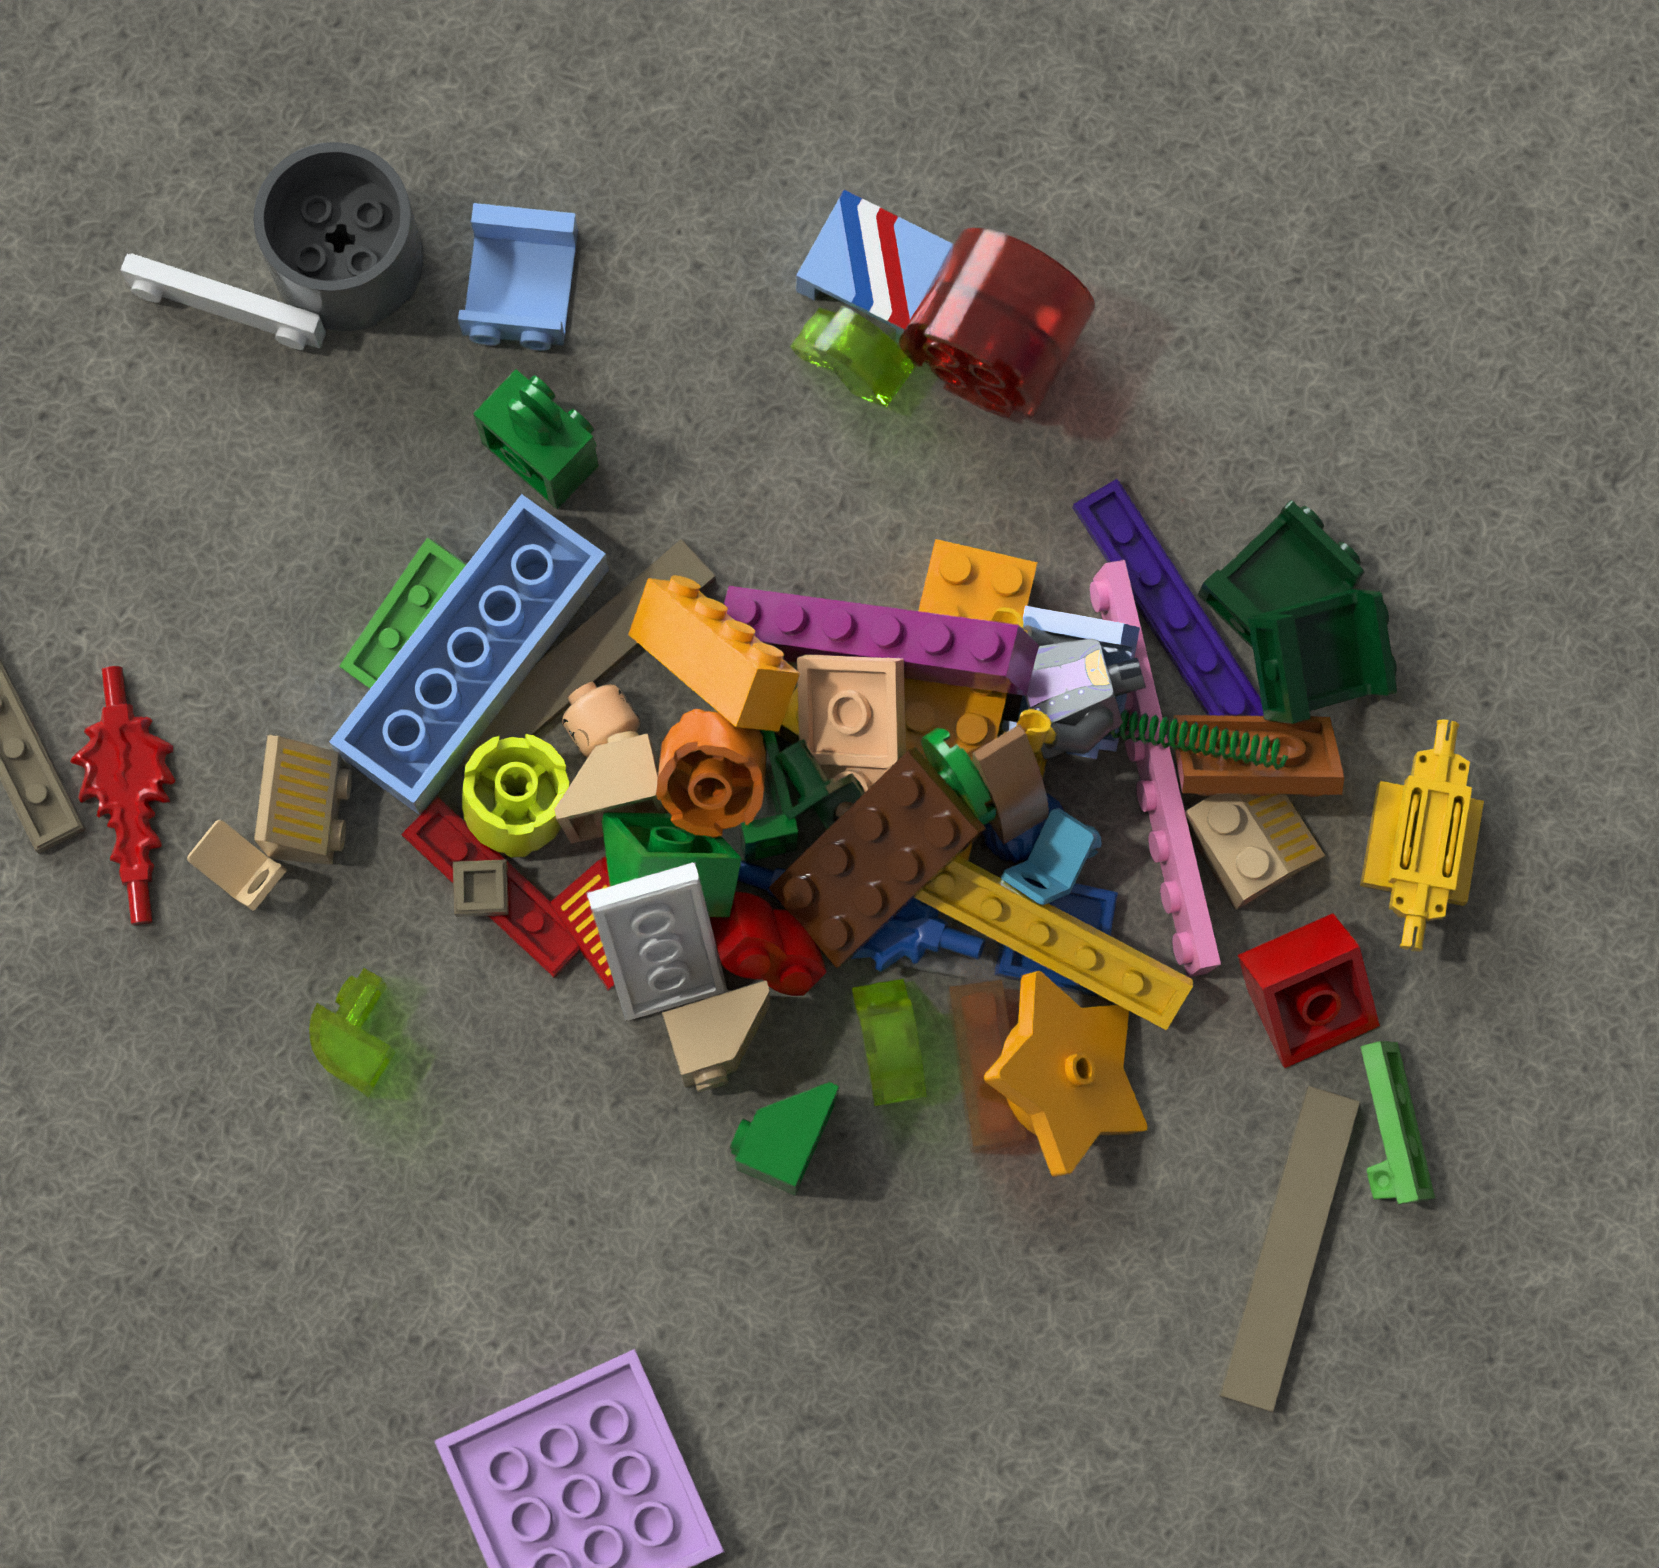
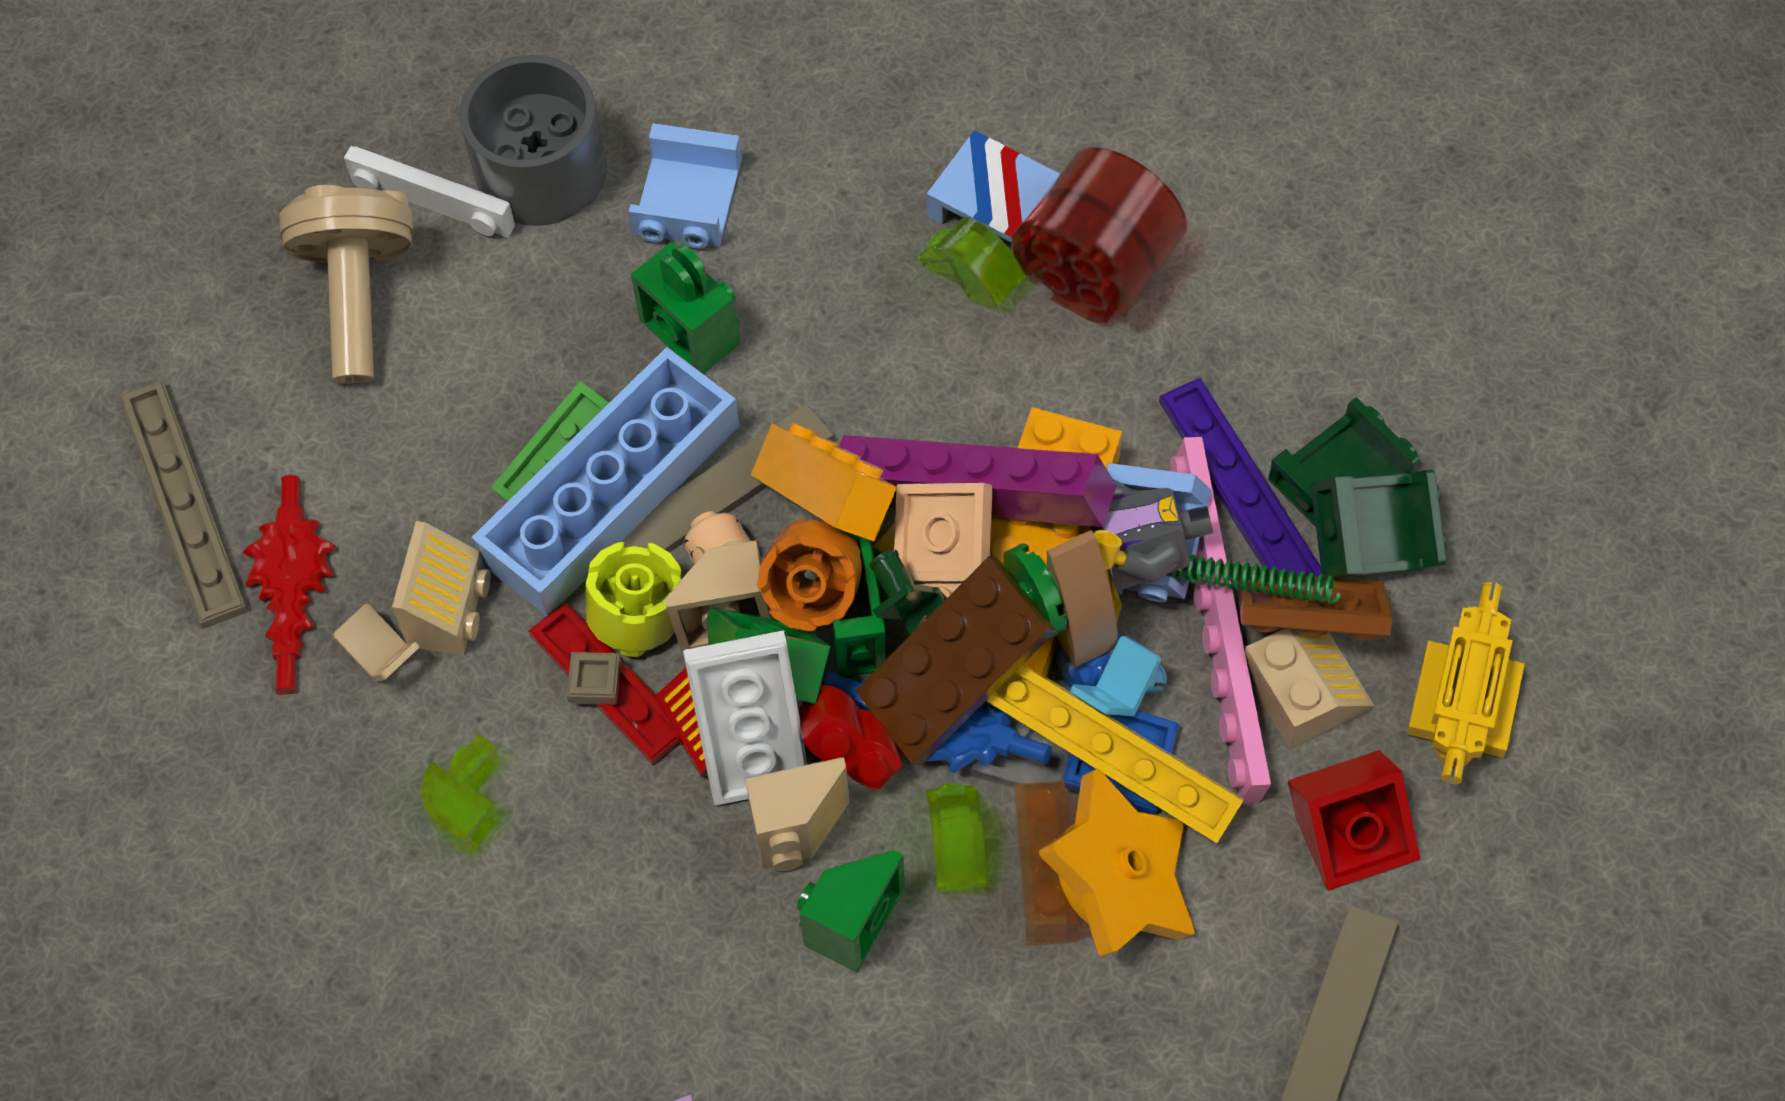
camera: 10 degrees right, 15 degrees down
(137, 371) = (343, 231): none -> tan piece
(1405, 1170) = (1439, 987): bright green hinge -> none

